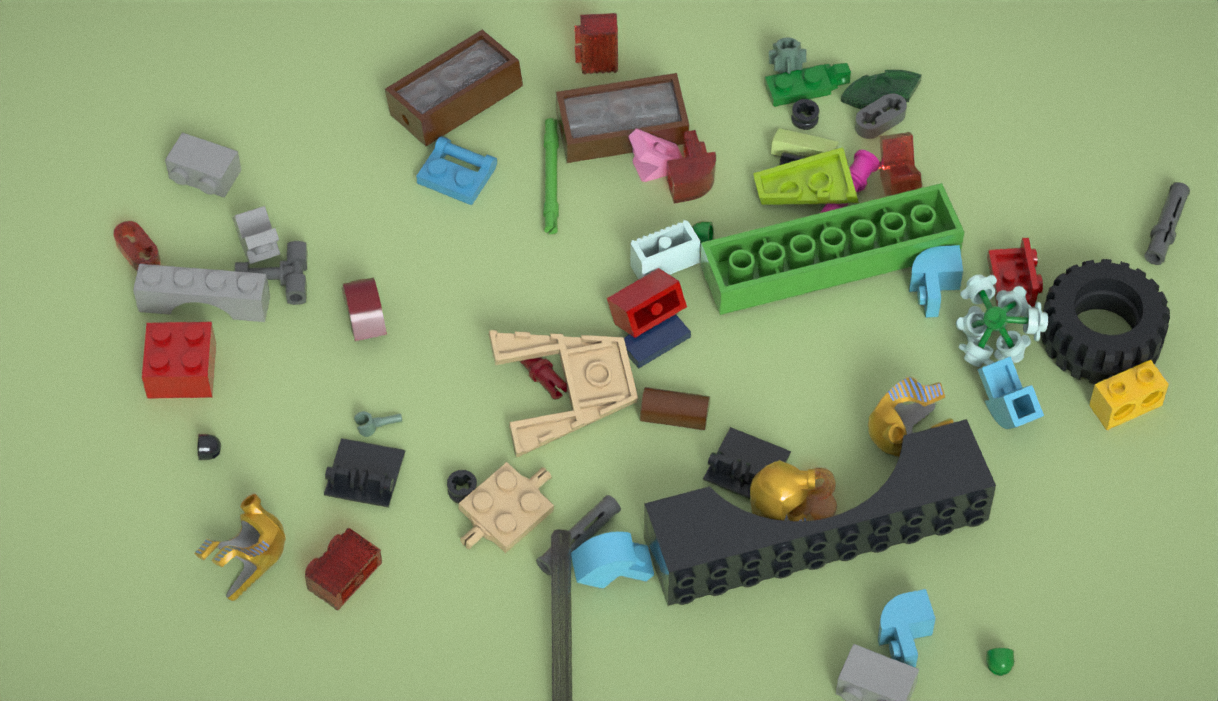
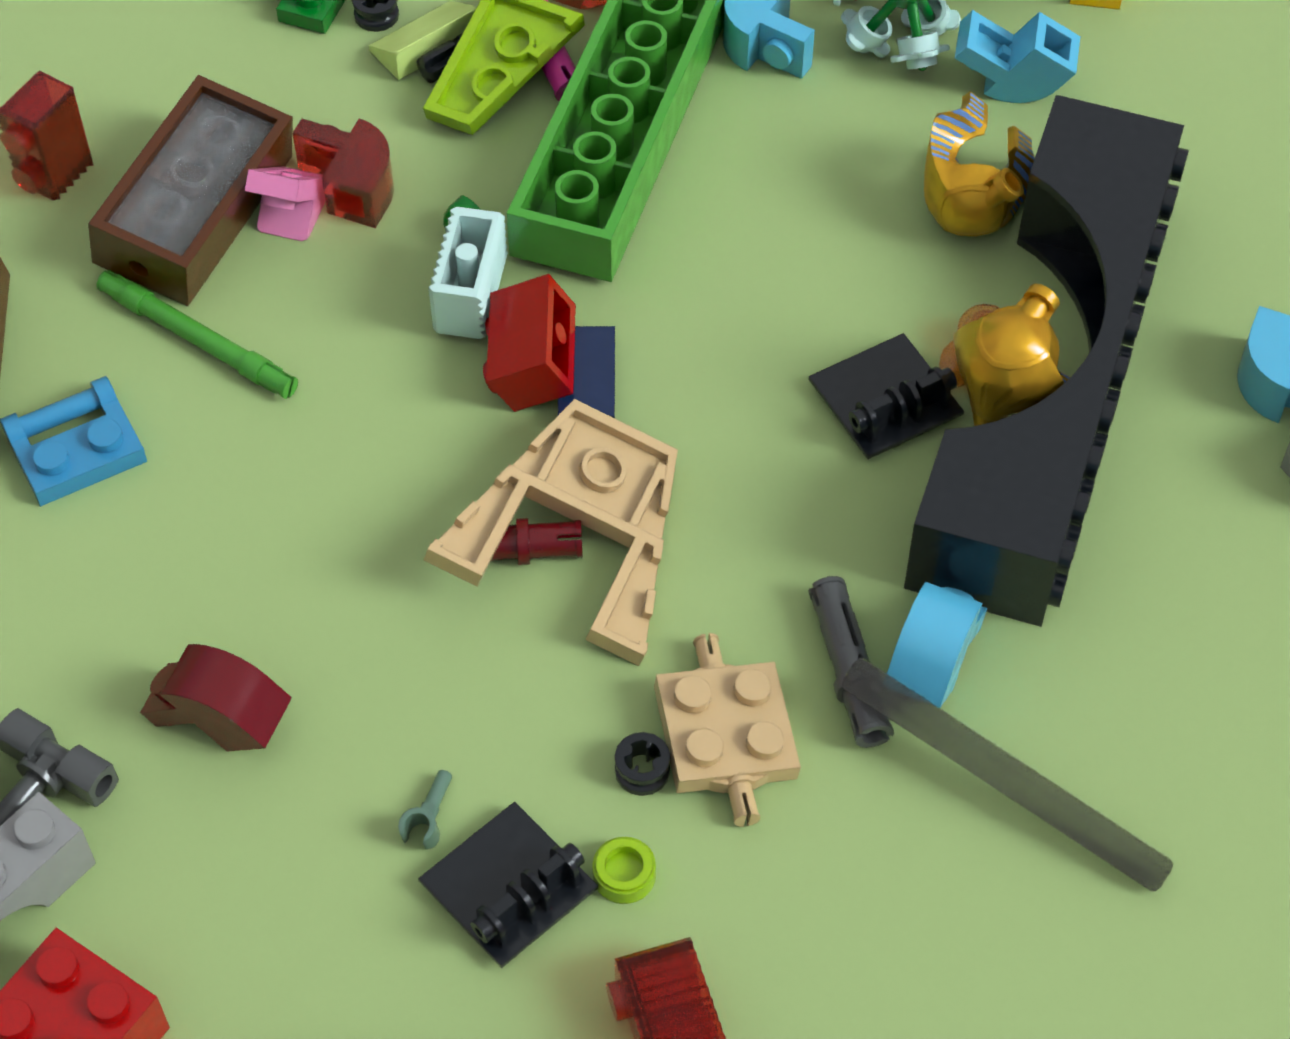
camera: 55 degrees left, 0 degrees up
(405, 512) = (624, 870): none -> lime tile
(674, 408) = (726, 419): reddish brown brick -> none

